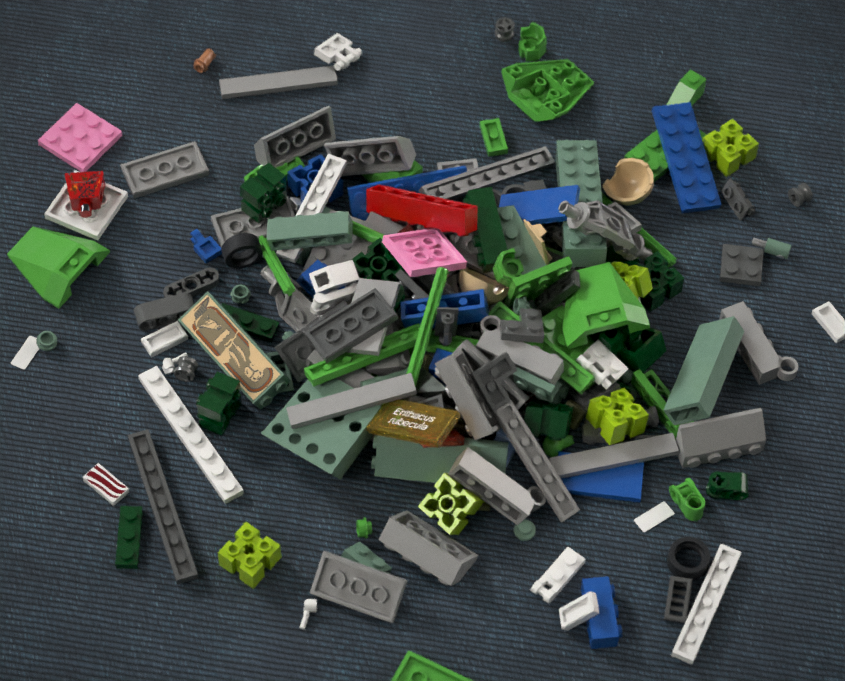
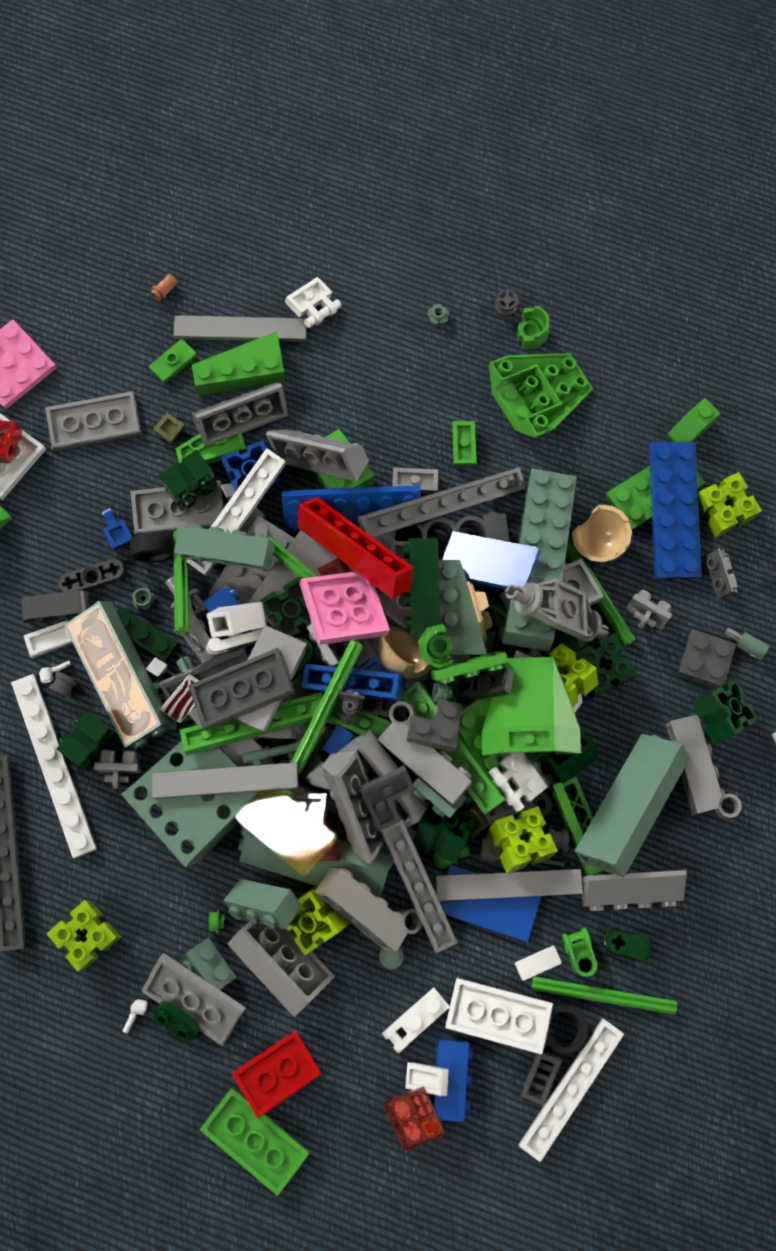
camera: 10 degrees right, 20 degrees up
(224, 114) = (173, 361): none -> bright green plate
(234, 163) = (169, 428): none -> olive plate
(248, 425) = (107, 764): none -> light grey hips
(266, 342) = (157, 667): none -> white piece
(285, 107) = (241, 368): none -> bright green wedge
(297, 355) = (181, 701): none -> tile
(346, 607) = (176, 1021): none -> dark green plate
(404, 495) = (262, 904): none -> sand green brick
(446, 632) = (276, 1074): none -> red plate
(447, 47) = (438, 320): none -> sand green plate
(574, 644) = (414, 1118): none -> clear red tile
(629, 553) = (499, 1015): none -> white plate
(682, 235) = (648, 612): none -> light grey hips
(717, 529) = (604, 995): none -> bright green axle
(764, 293) = (724, 711): none -> dark green brick

